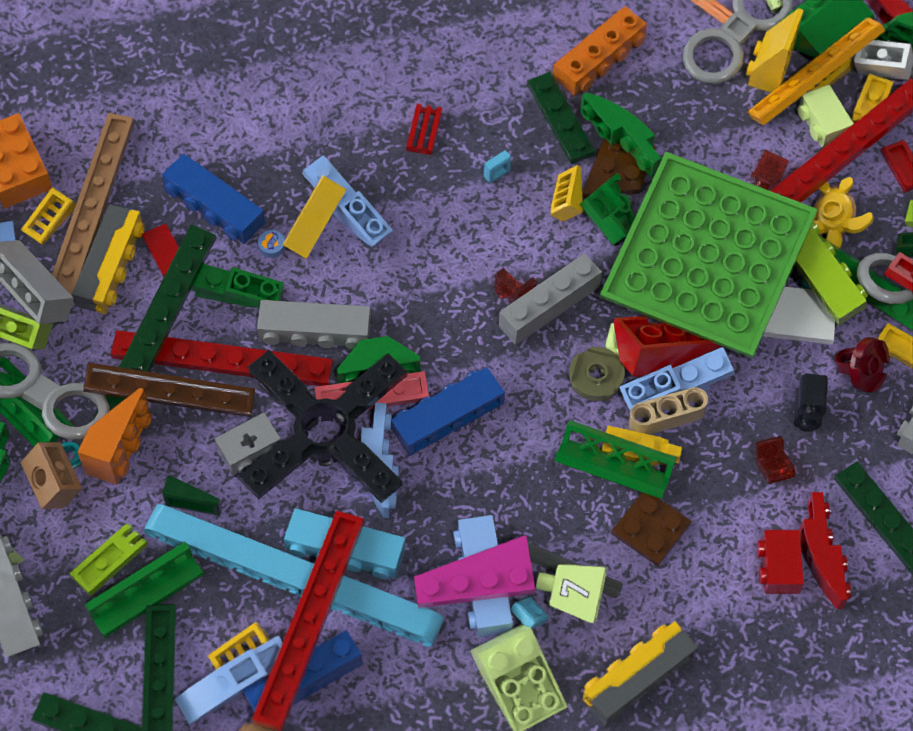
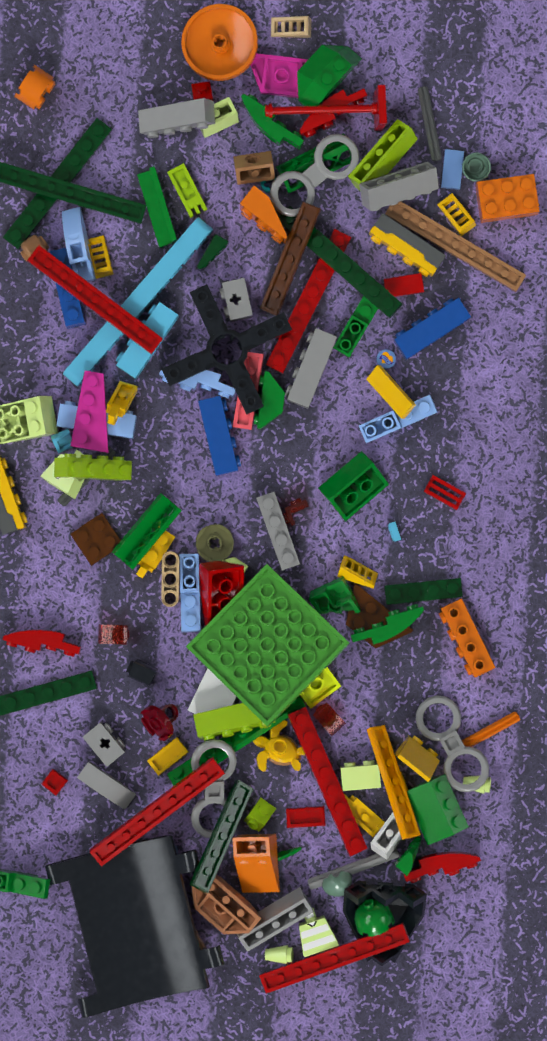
camera: 105 degrees right, 25 degrees up
(446, 546) = (120, 401): none -> yellow hinge
(453, 231) = (353, 486): none -> green slope
(557, 544) = (90, 468): none -> lime brick
(781, 562) = (44, 611): red brick -> none

